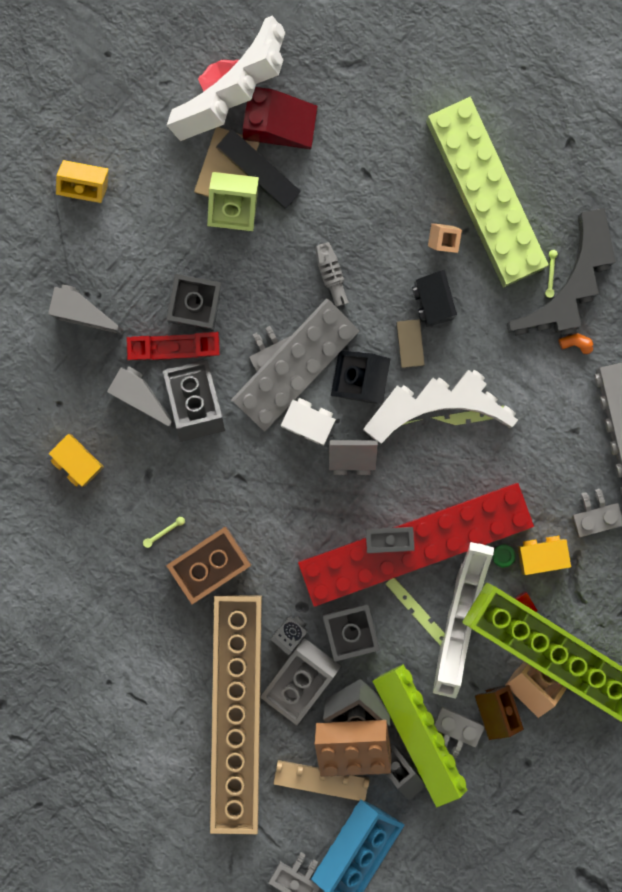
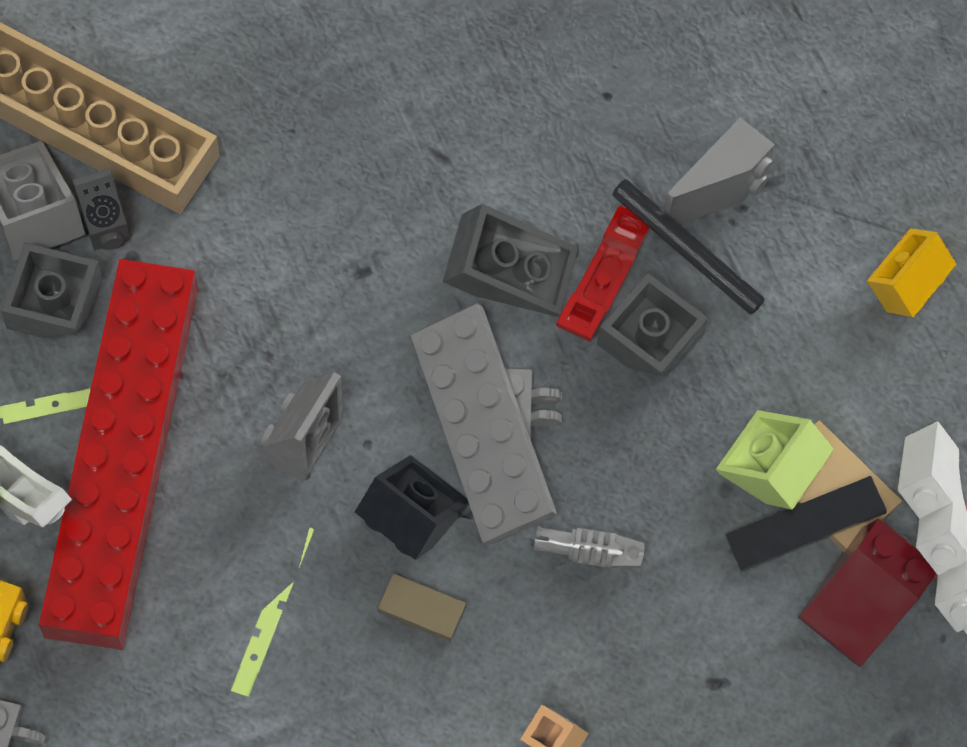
camera: 115 degrees right, 20 degrees down
(75, 461) = (514, 69): yellow brick -> none
(132, 309) = (688, 246): none -> black axle
(136, 392) = (557, 189): light grey slope -> none
(148, 542) = (346, 110): yellowish green hinge -> none
(209, 565) = (264, 160): medium nougat brick -> none
(308, 422) = (386, 390): white piece -> none
(390, 540) = (147, 401): dark grey plate -> none
(434, 298) = (467, 672): black slope -> none
(465, 395) = (320, 597): white arch -> none
(503, 555) = (26, 571): green tile -> none

